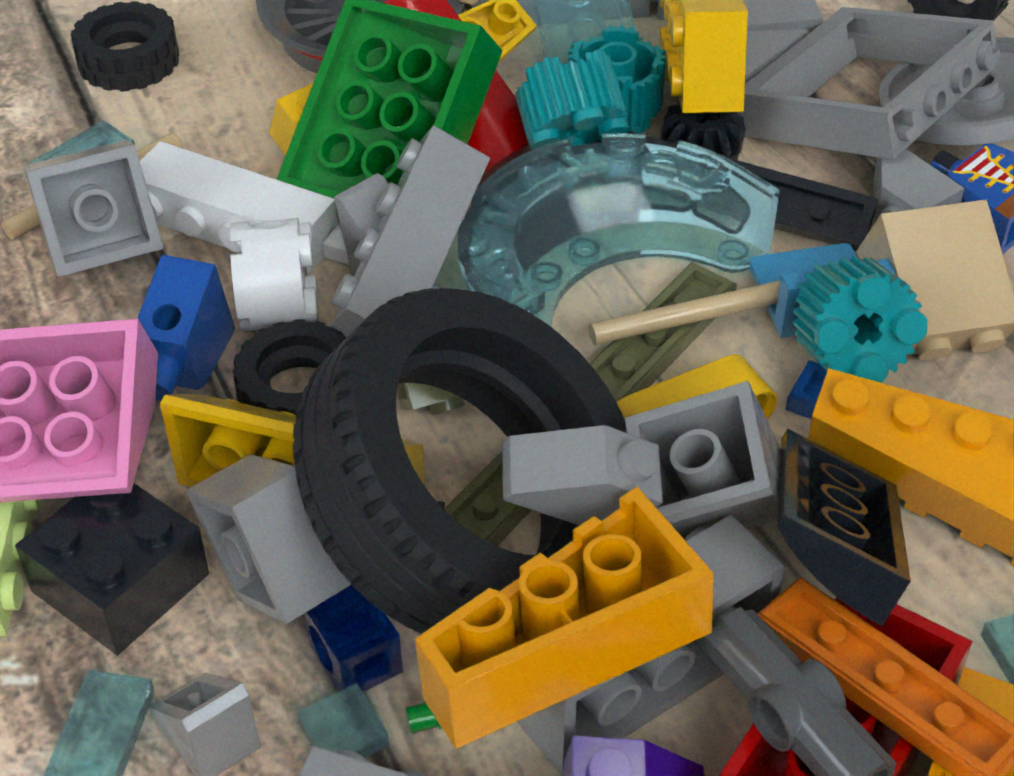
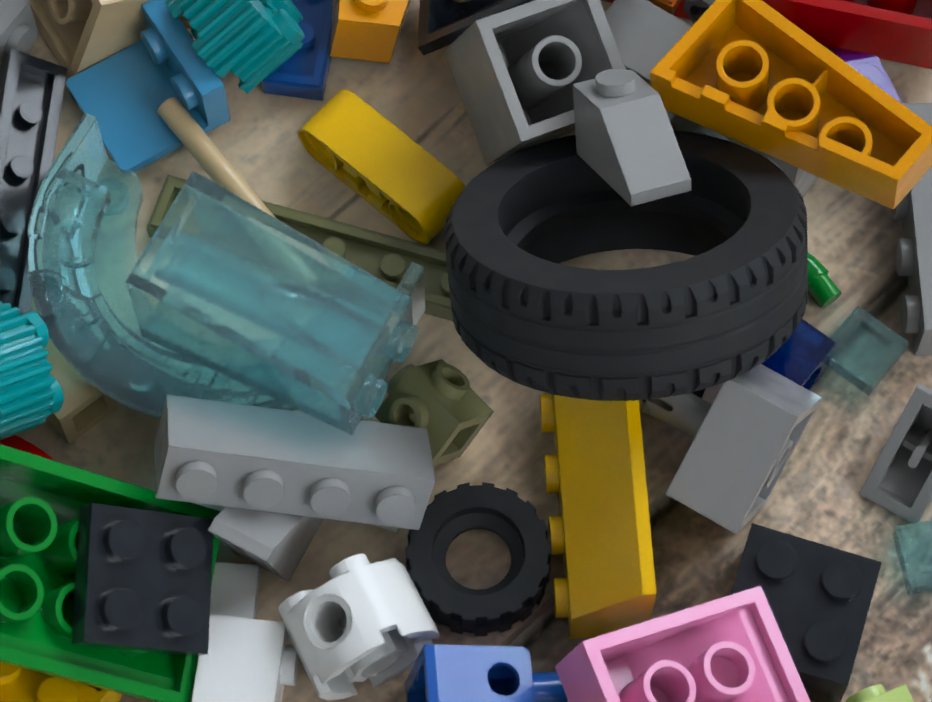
camera: 110 degrees left, 20 degrees up
(359, 136) = (142, 580): none -> black plate
(535, 207) = (269, 306): none -> clear light blue slope

